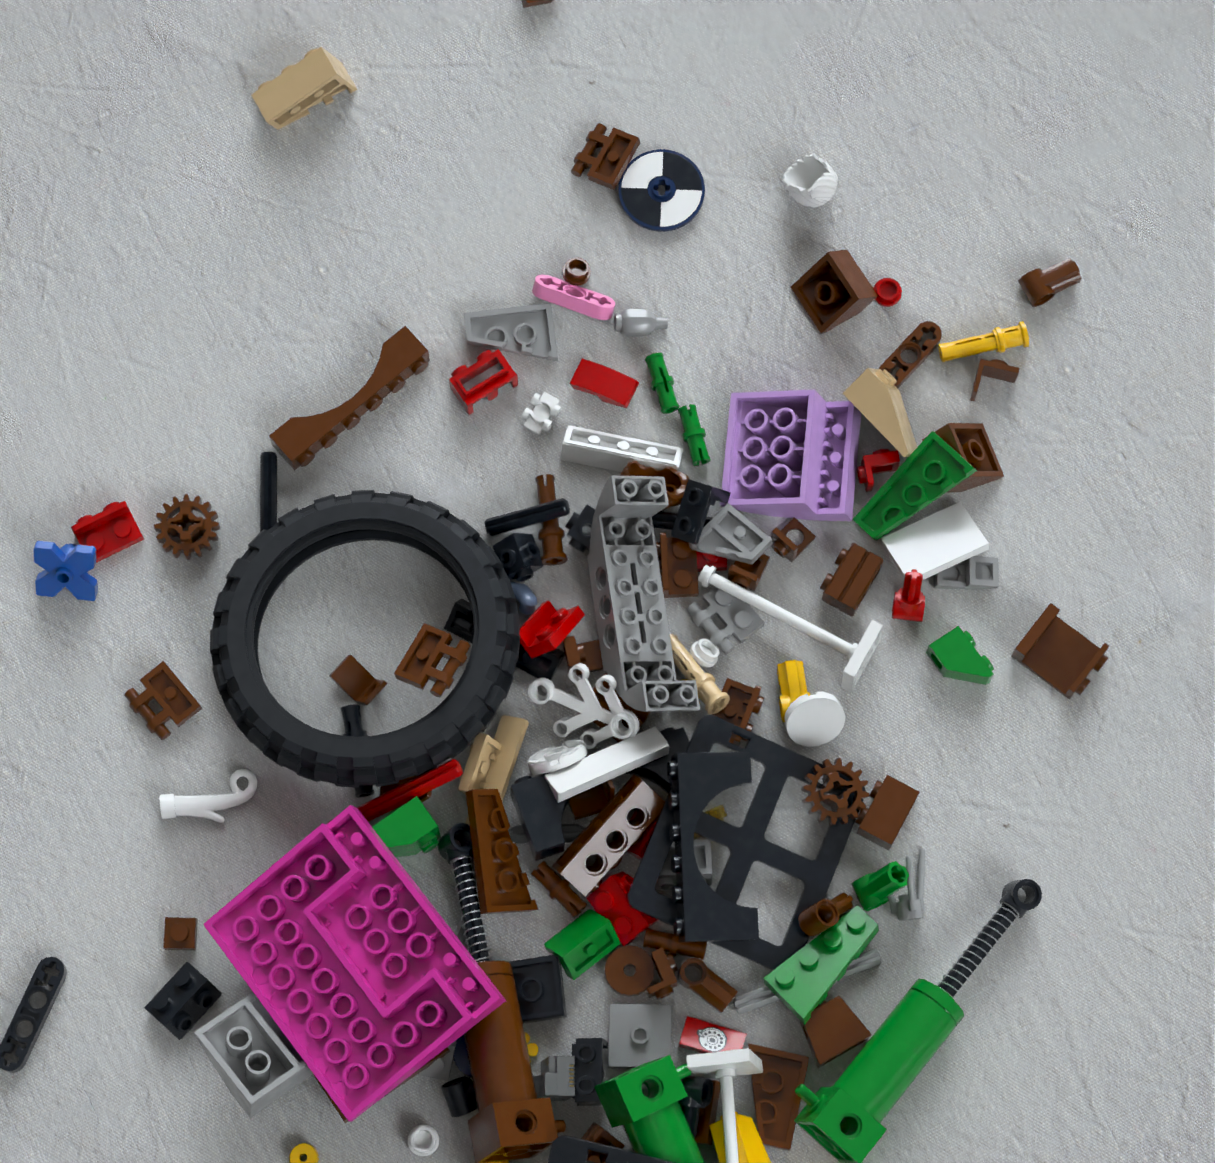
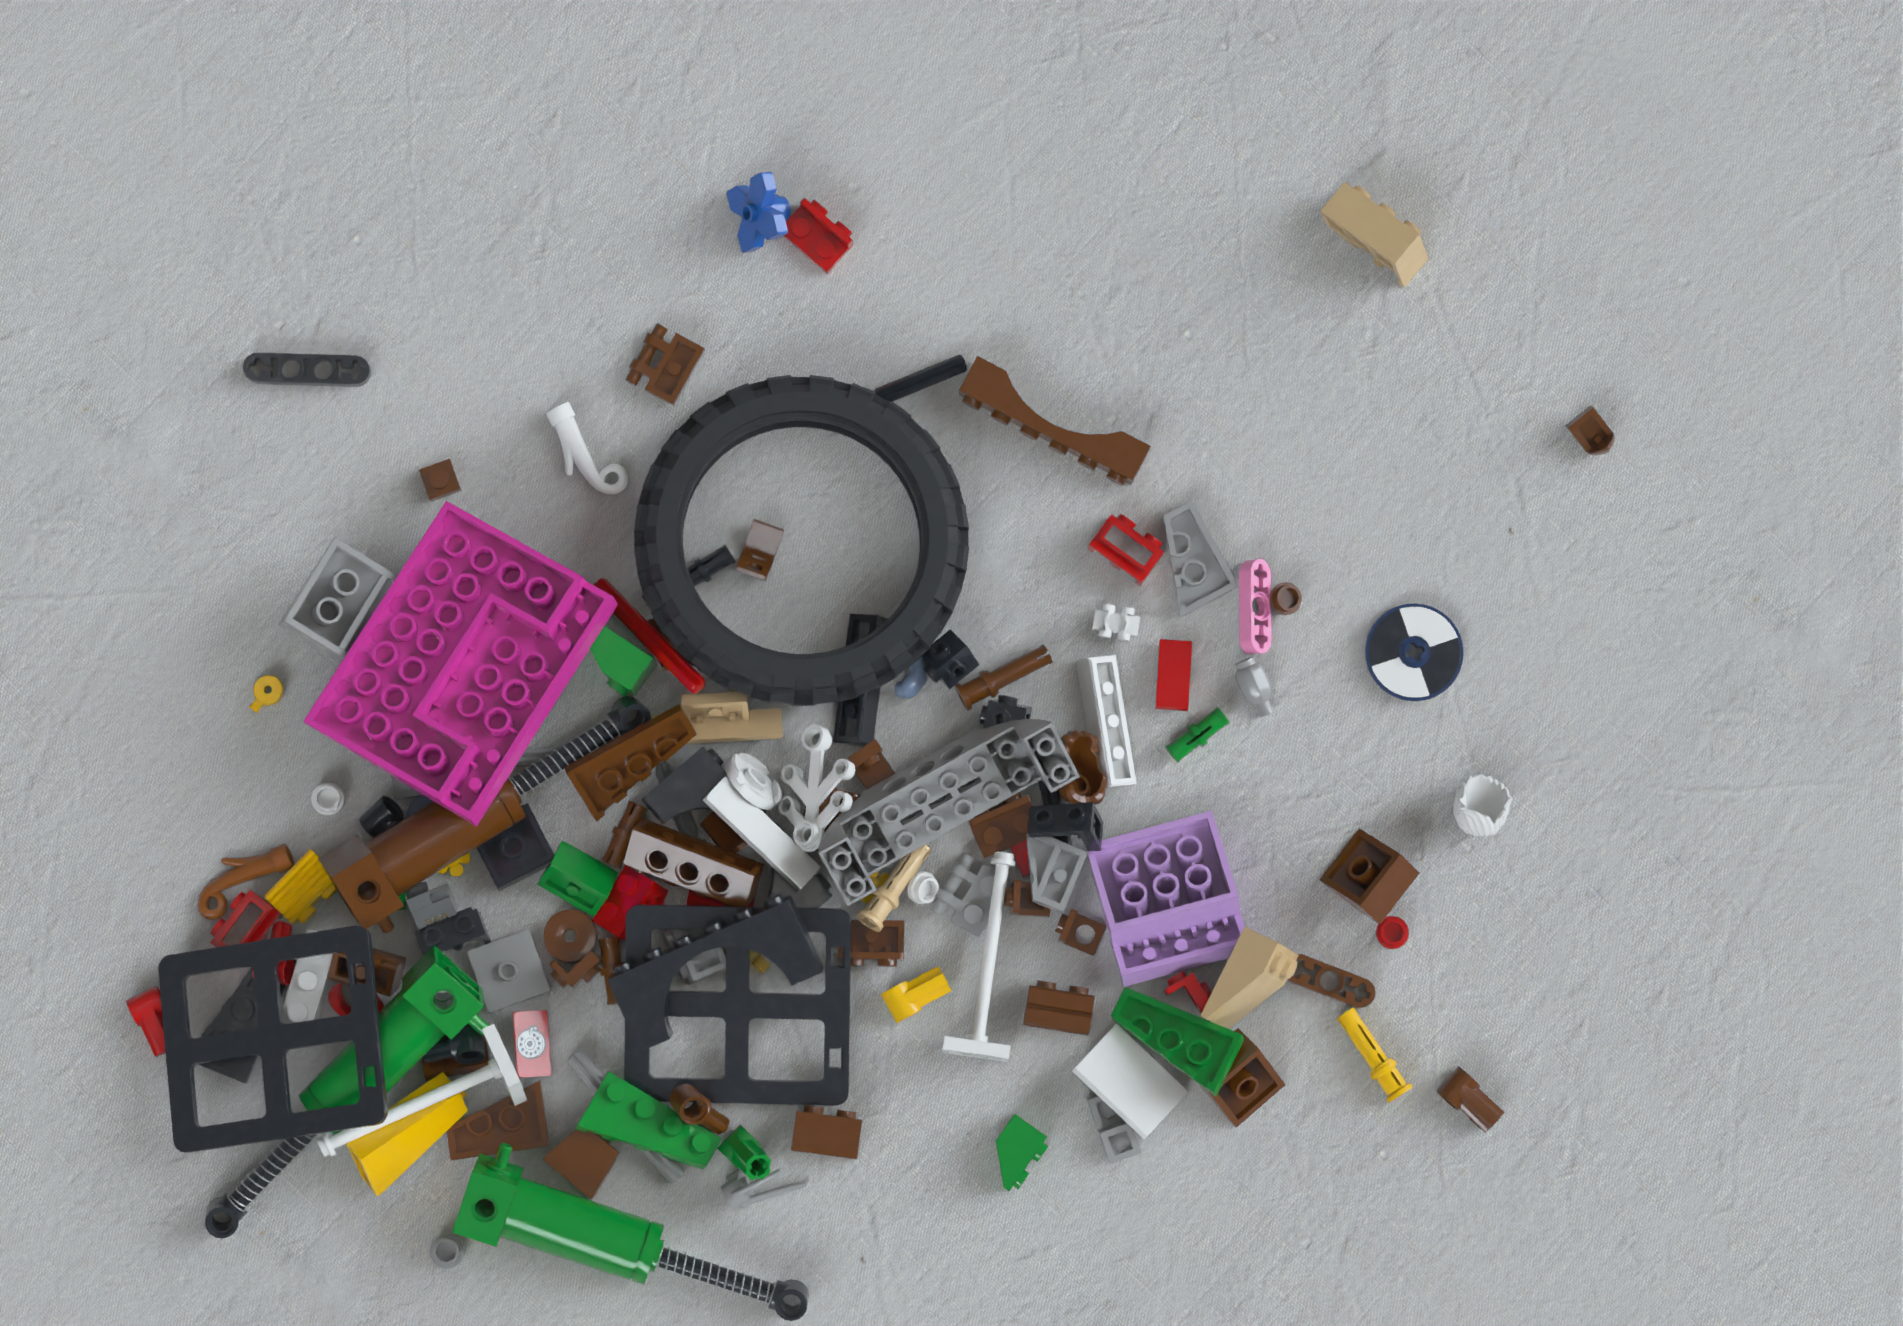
camera: 65 degrees right, 10 degrees up
(175, 527) = (839, 318): reddish brown gear -> none
(183, 1000) = (374, 510): black bracket -> none
(424, 656) = (795, 609): reddish brown plate -> none
(527, 517) = (995, 652): black axle -> none
(548, 628) = (883, 720): red bracket -> none
(612, 159) = (1427, 587): reddish brown plate -> none
(694, 435) = (1153, 789): green pin -> none
(709, 986) = (582, 1021): reddish brown piece -> none
(814, 719) = (892, 1025): white tile -> none
(832, 780) = (832, 1086): reddish brown gear -> none
(909, 600) = (1058, 1076): red axle -> none
(994, 369) = (1349, 1076): reddish brown bracket -> none
(1059, 653) = (1063, 1253): reddish brown panel -> none

